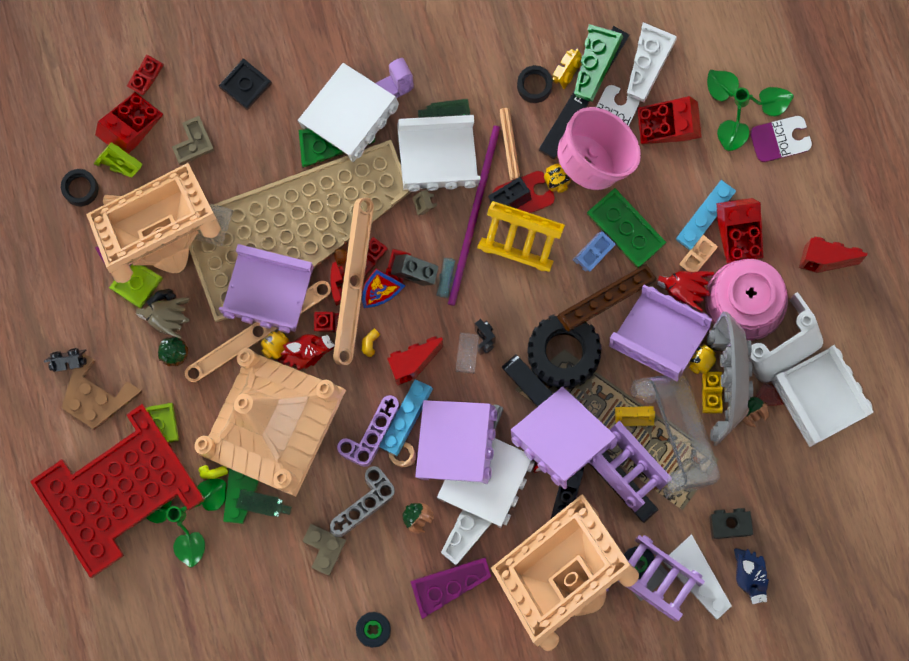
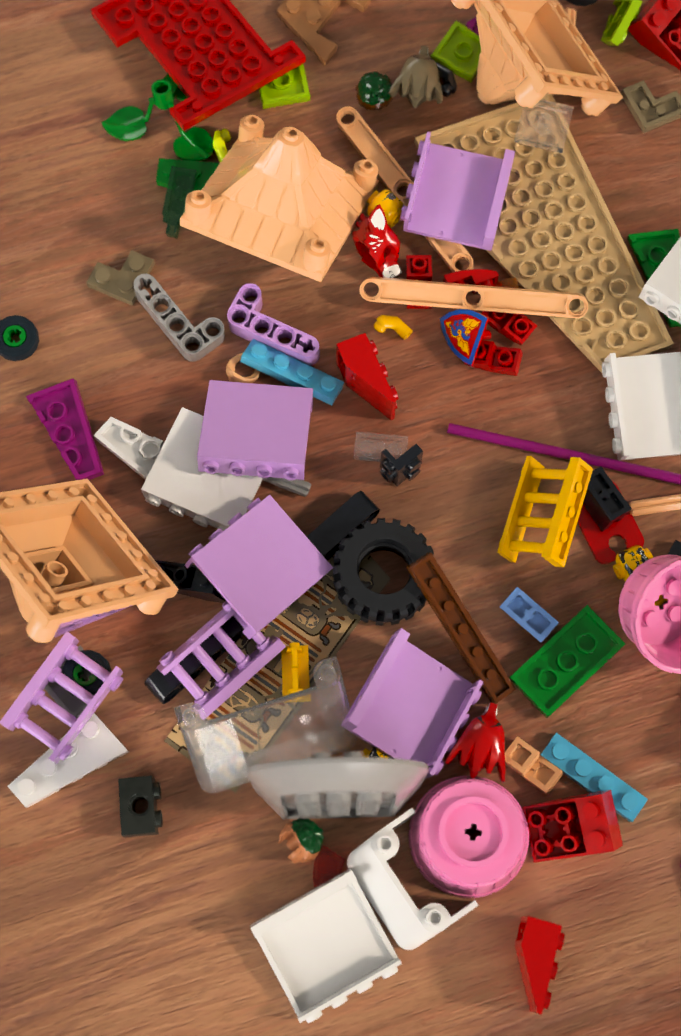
camera: 85 degrees right, 5 degrees down
(414, 270) = (491, 373): pearl dark grey brick -> none
(416, 516) = (157, 385): piece -> none
(423, 203) = (587, 387): dark tan tile -> none
(446, 277) = (484, 419): clear light blue pin -> none
(751, 571) = (66, 833): dark blue piece -> none

